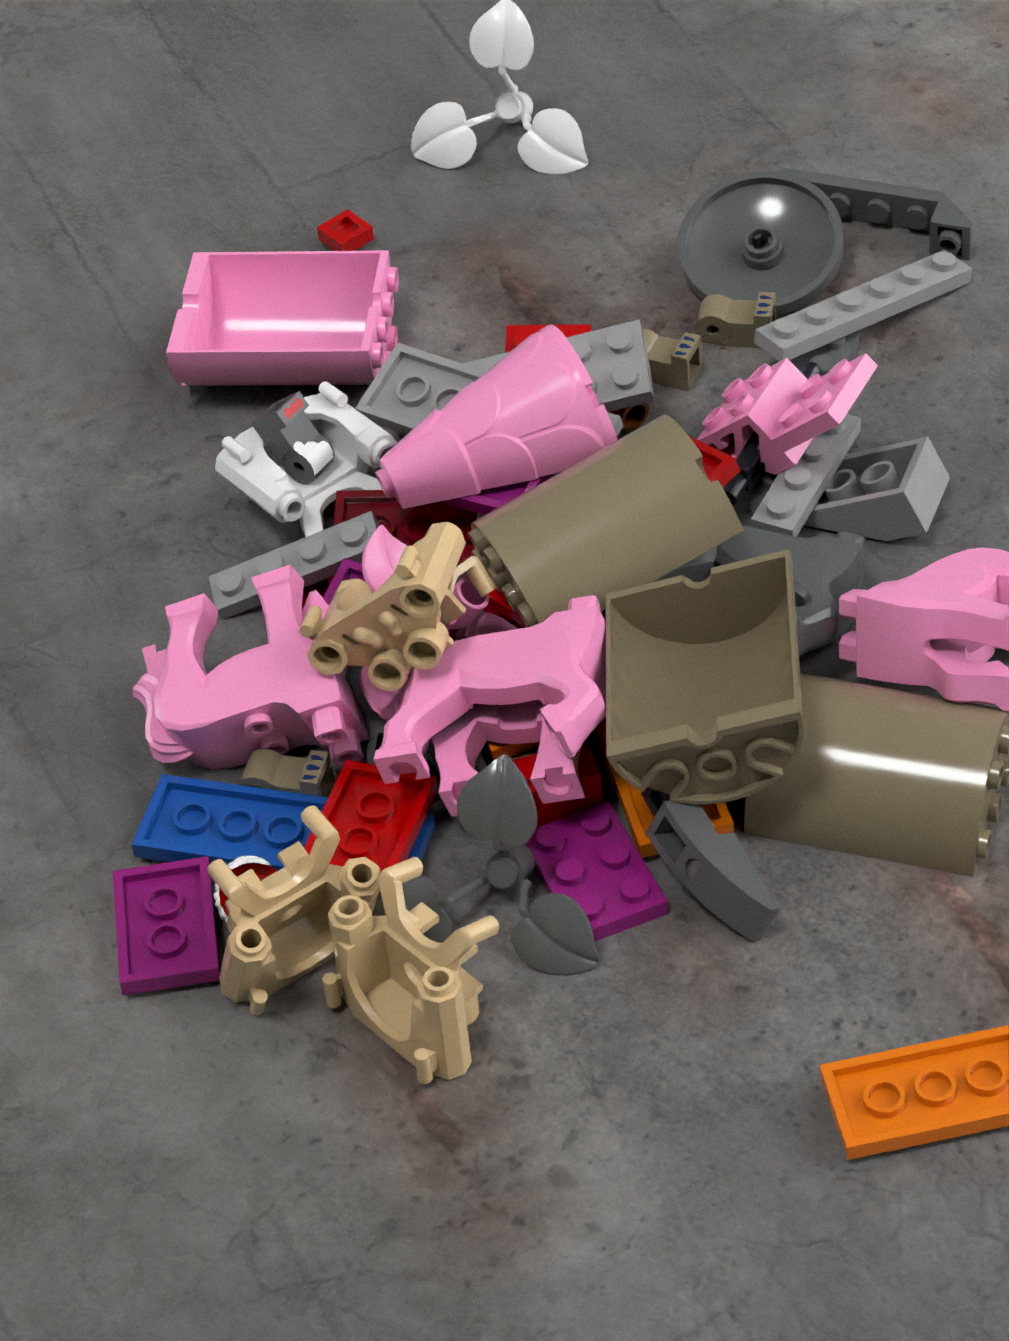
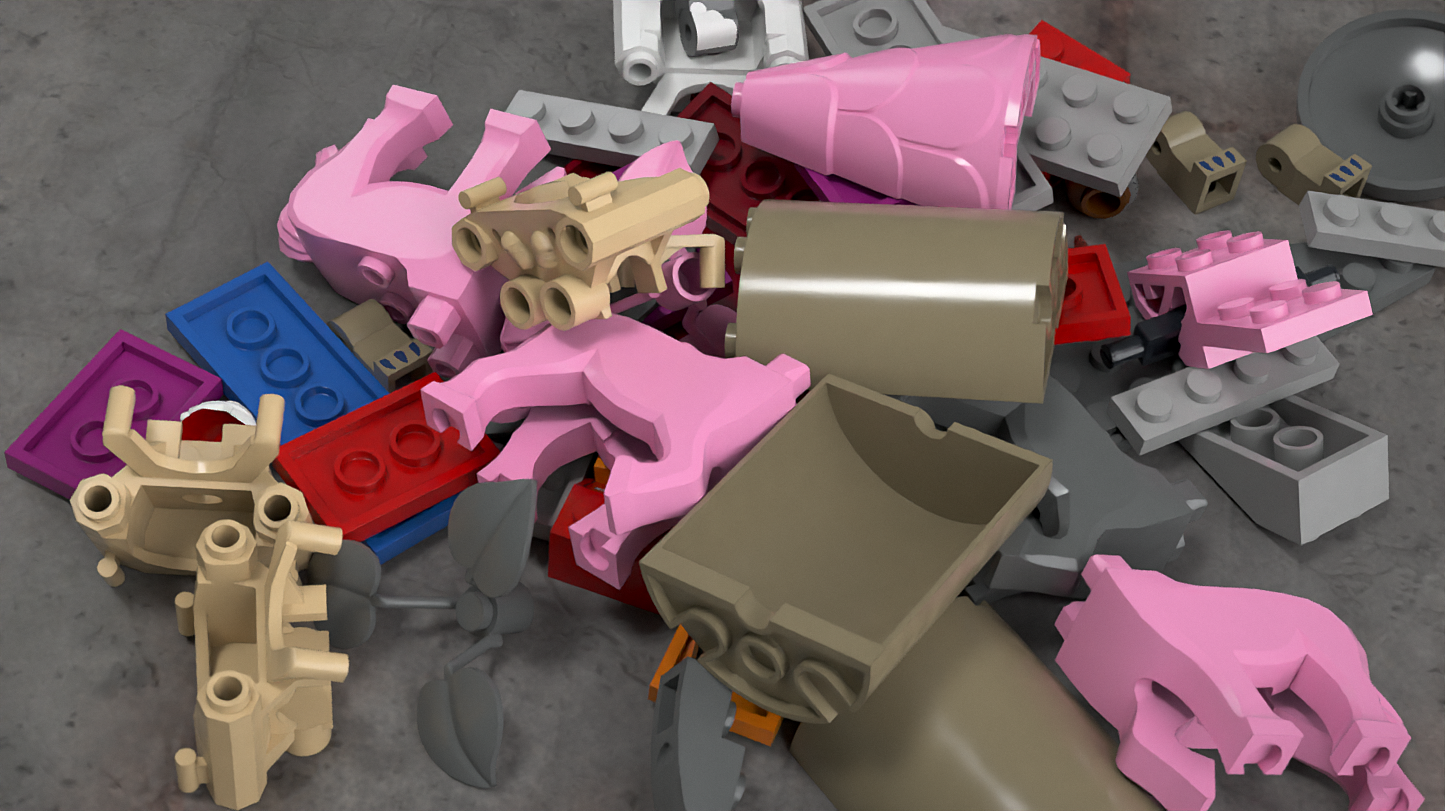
camera: 25 degrees right, 5 degrees up
(599, 869) = (582, 682): magenta plate -> none

